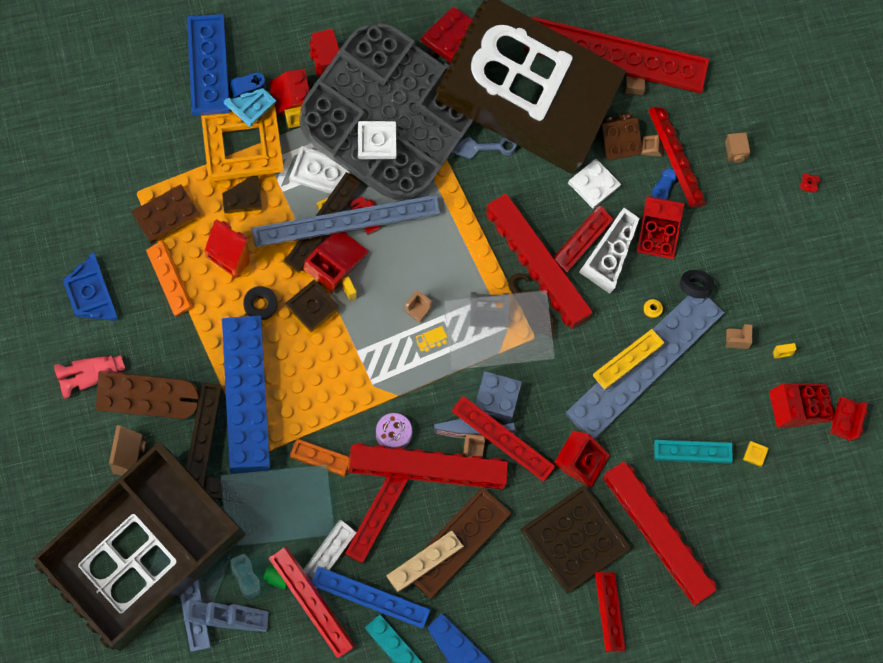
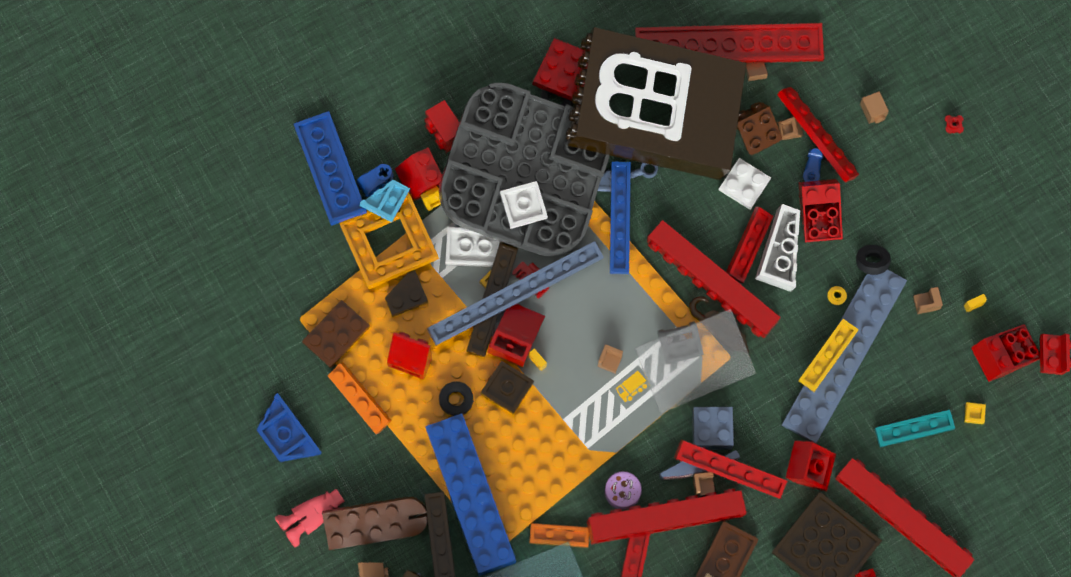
camera: 10 degrees left, 5 degrees up
(466, 181) = (620, 217): none -> blue plate

